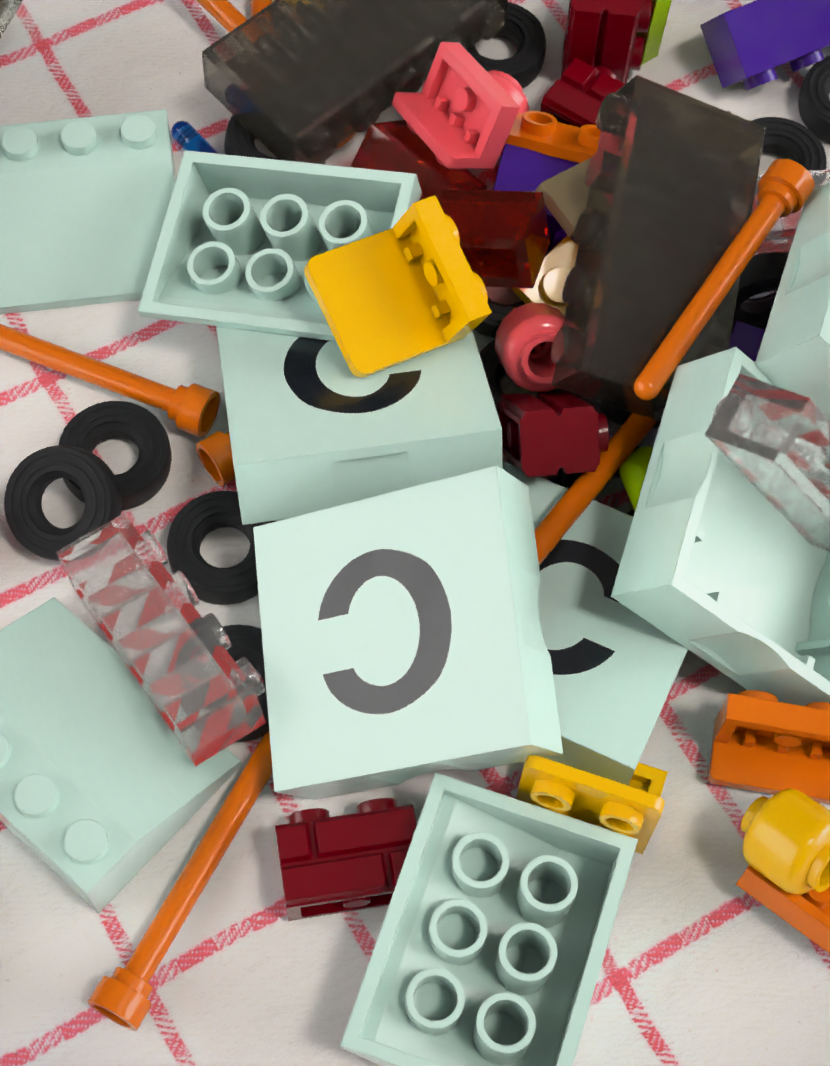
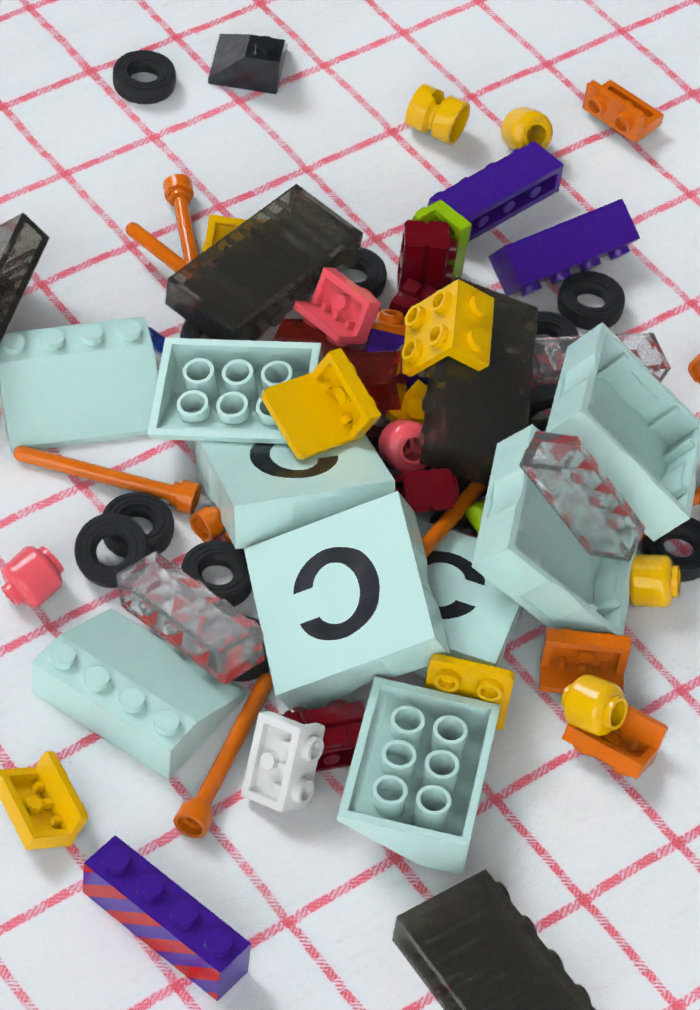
camera: 10 degrees left, 15 degrees down
(270, 920) = (282, 762): none -> white bracket
(621, 162) = (451, 324): none -> yellow bracket
(781, 192) = (551, 344): orange piece -> none

